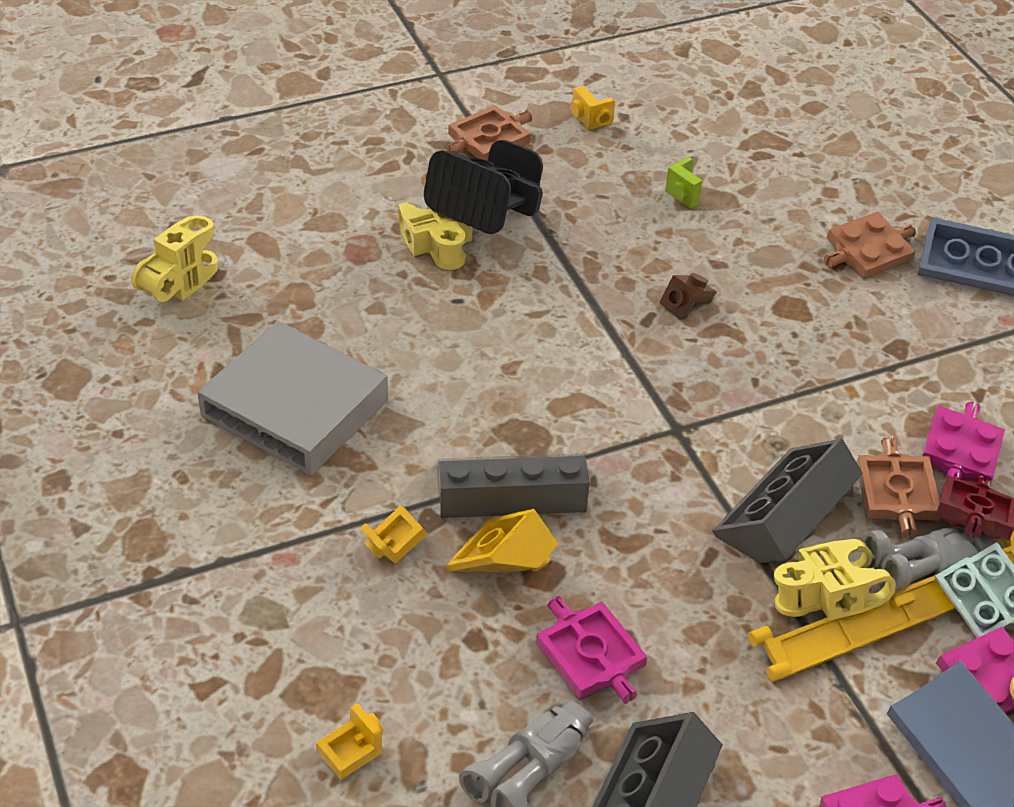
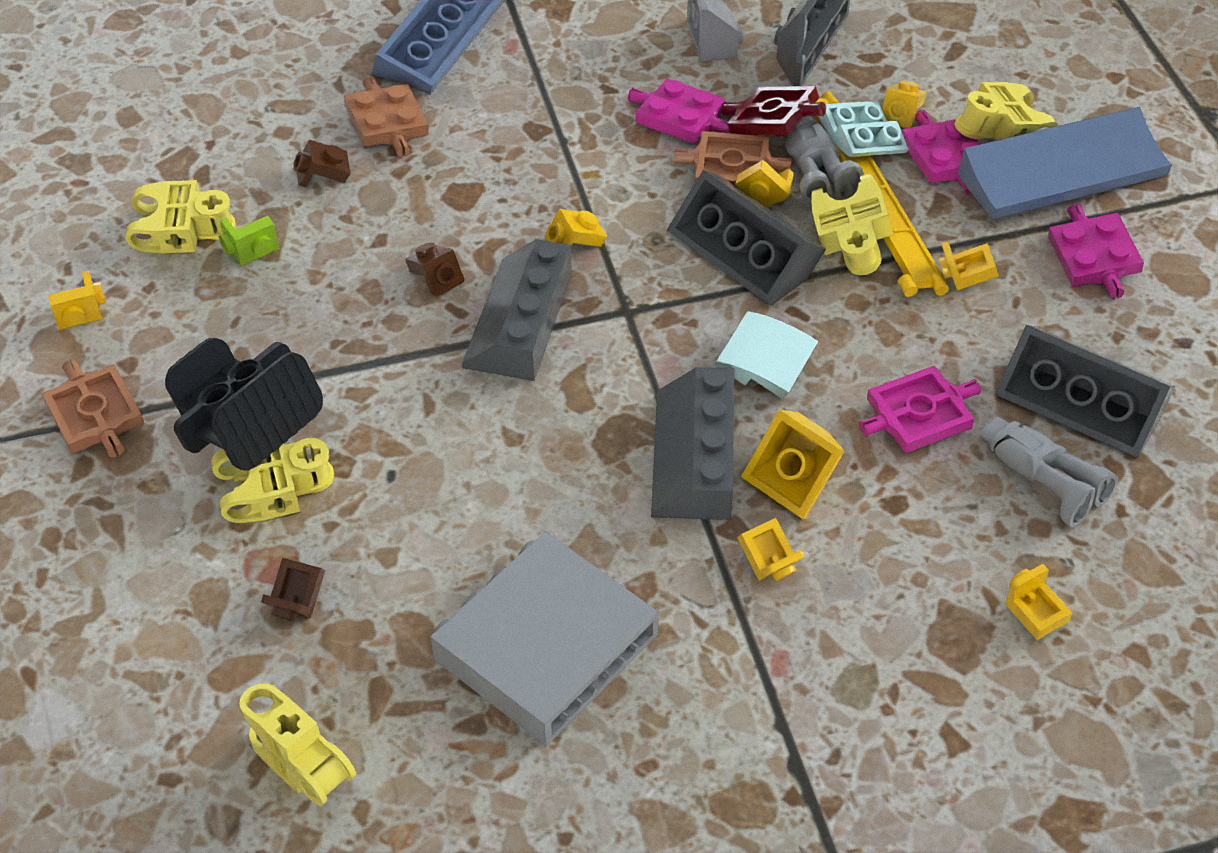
camera: 80 degrees left, 5 degrees up
(328, 256) = (294, 590): none -> reddish brown bracket
(636, 524) = (767, 353): none -> light aqua slope
(648, 356) = (521, 311): none -> dark grey slope
(702, 142) = (177, 217): none -> light yellow piece
(761, 378) = (576, 228): none -> yellow bracket
(791, 212) = (323, 161): none -> reddish brown bracket
(803, 687) = (968, 266): none -> yellow bracket
(859, 503) = (765, 183): none -> yellow bracket

